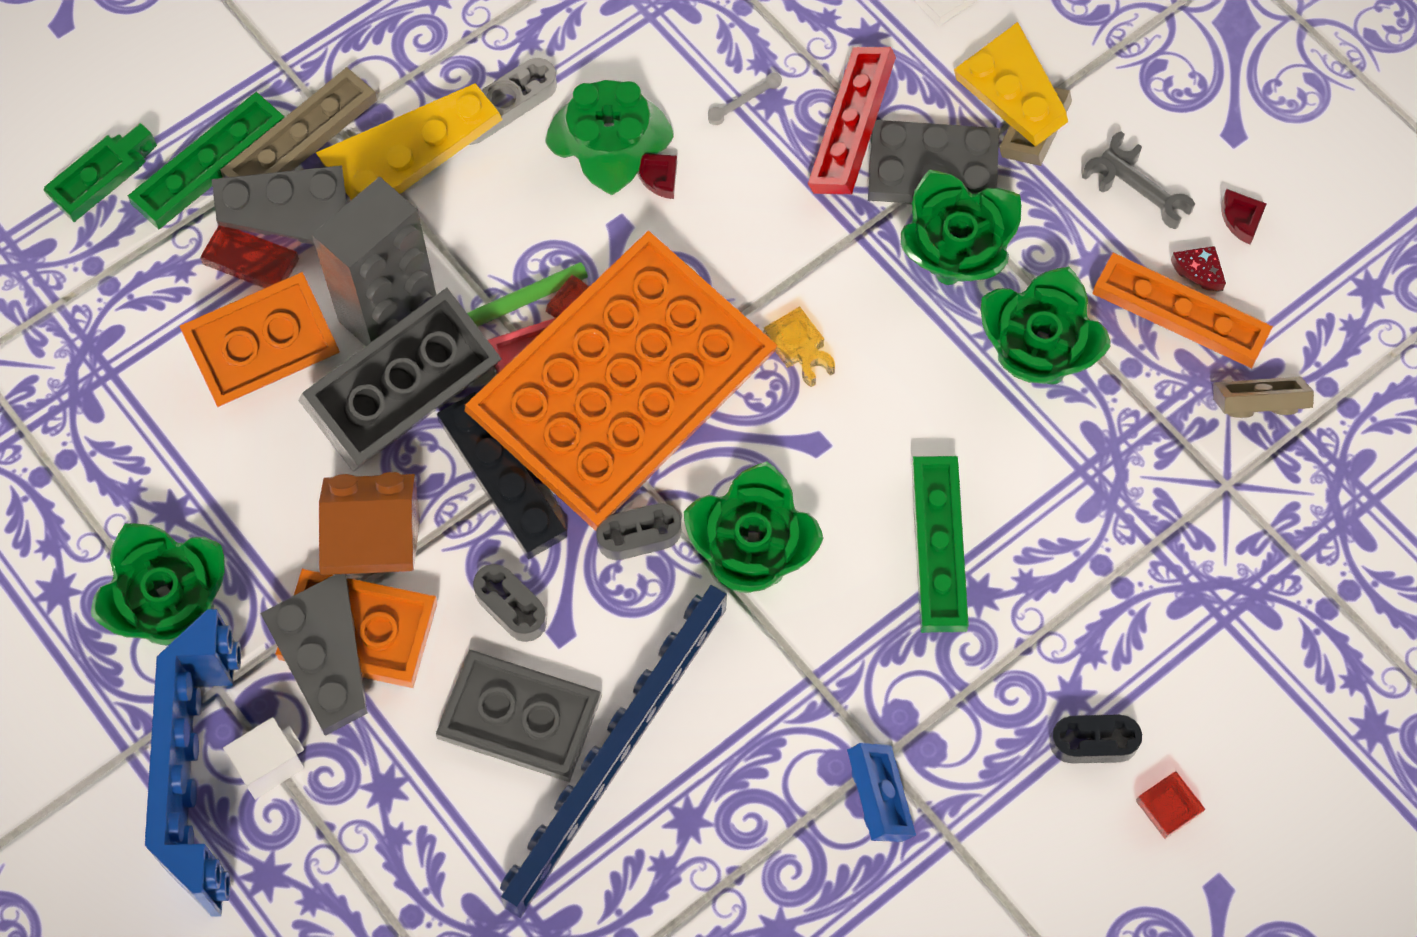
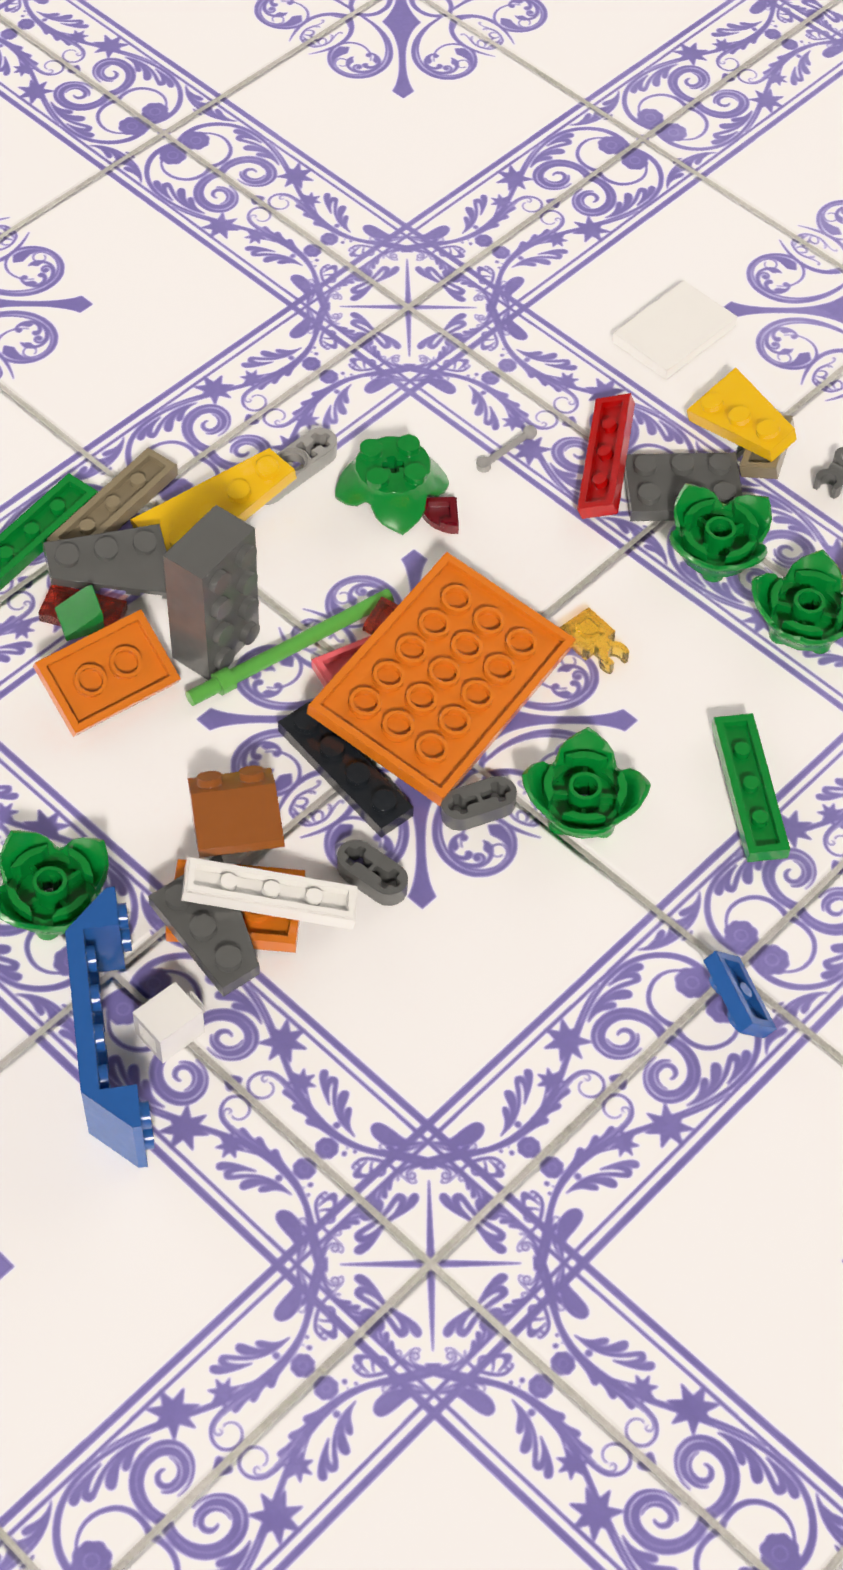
camera: 10 degrees left, 10 degrees down
(242, 267) = (80, 614): none -> green slope
(389, 623) = (269, 893): none -> white tile
(399, 379) = (243, 691): dark grey brick -> none
(519, 715) = (397, 967): dark grey tile -> none
(604, 763) = (483, 995): dark blue plate -> none

